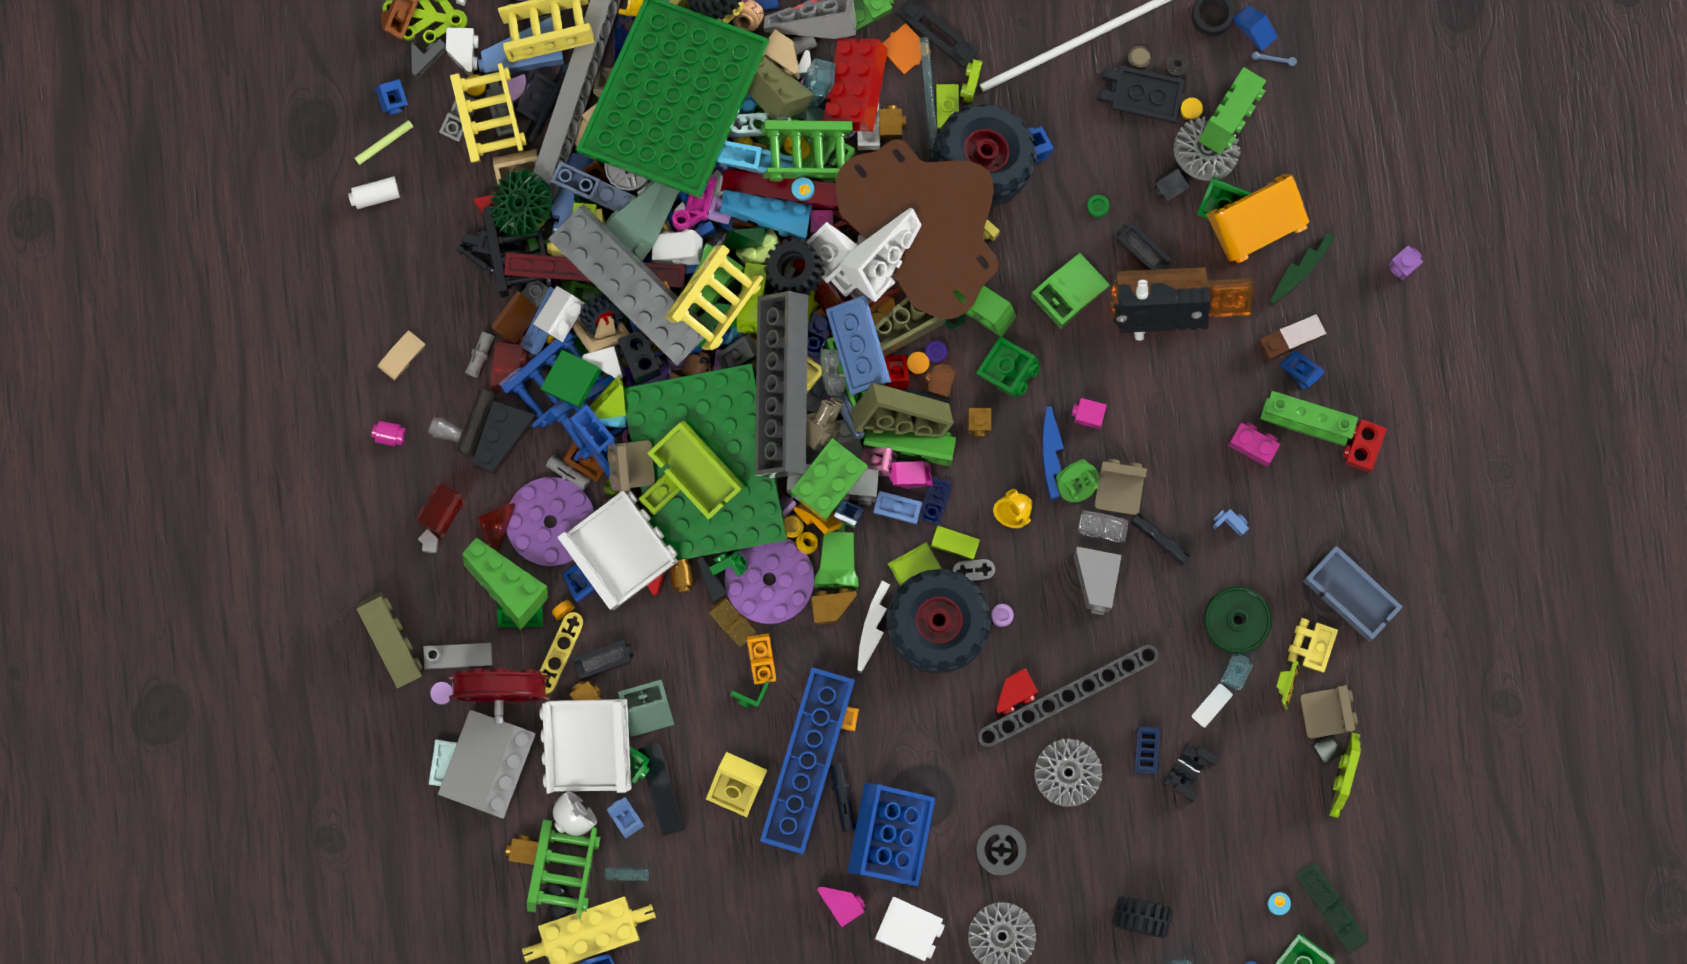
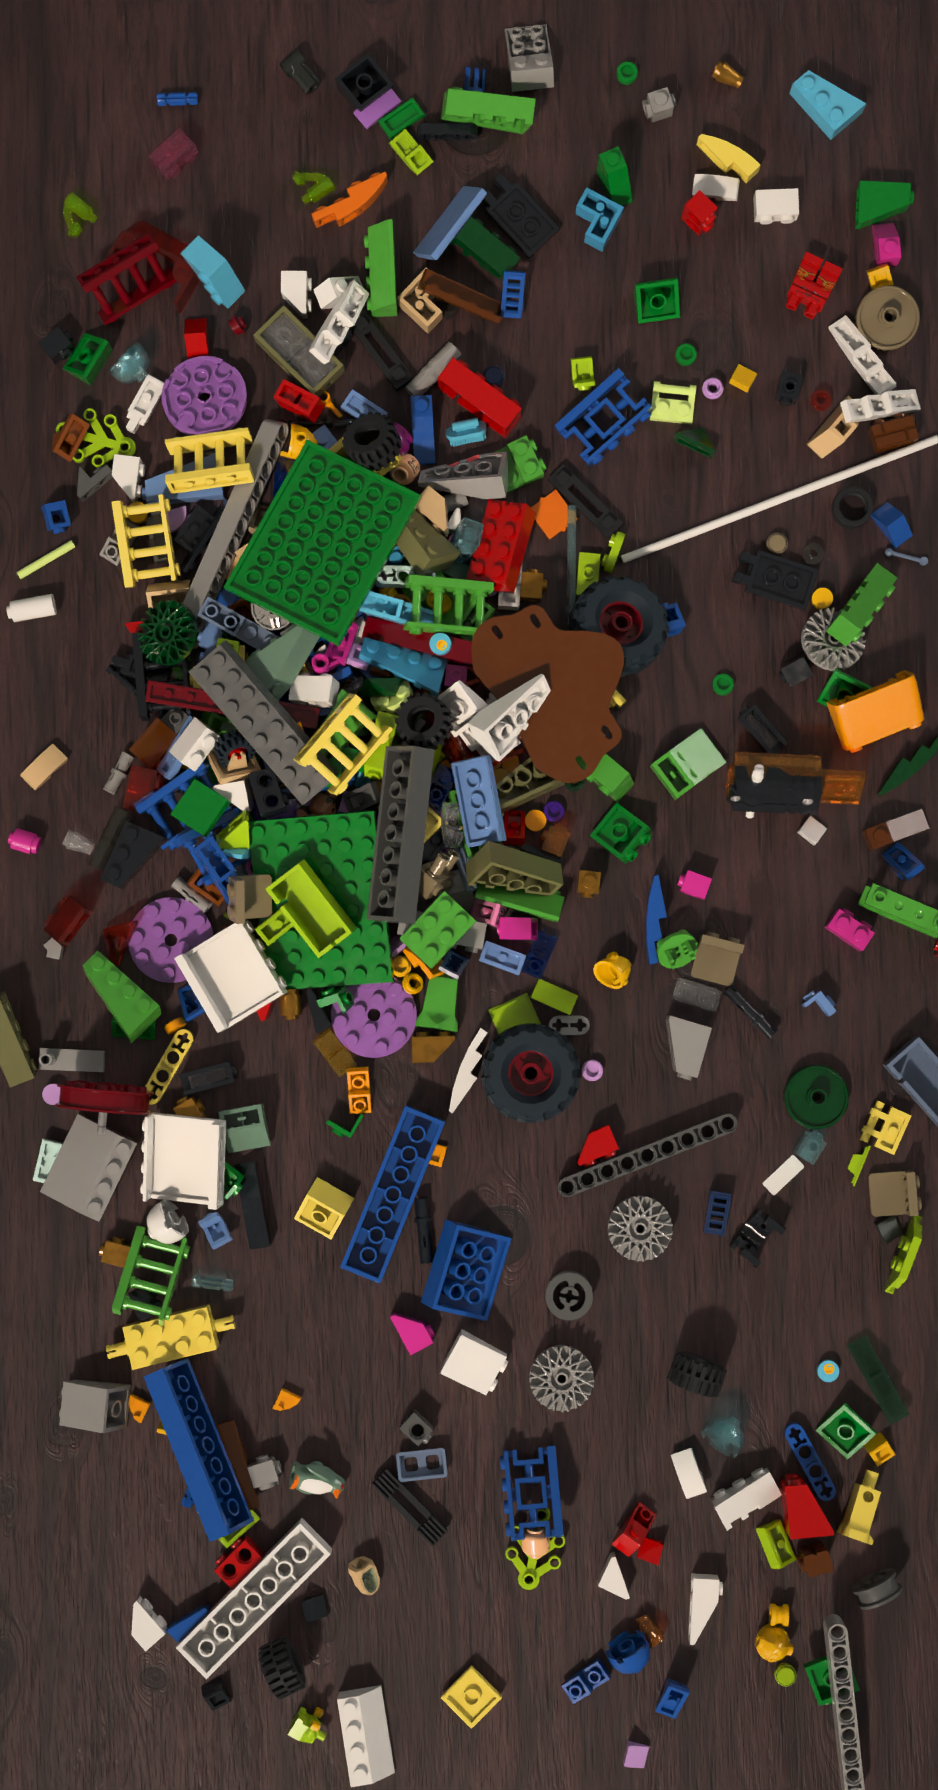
camera: 15 degrees right, 5 degrees up
(1205, 347) = (812, 830): none -> white slope

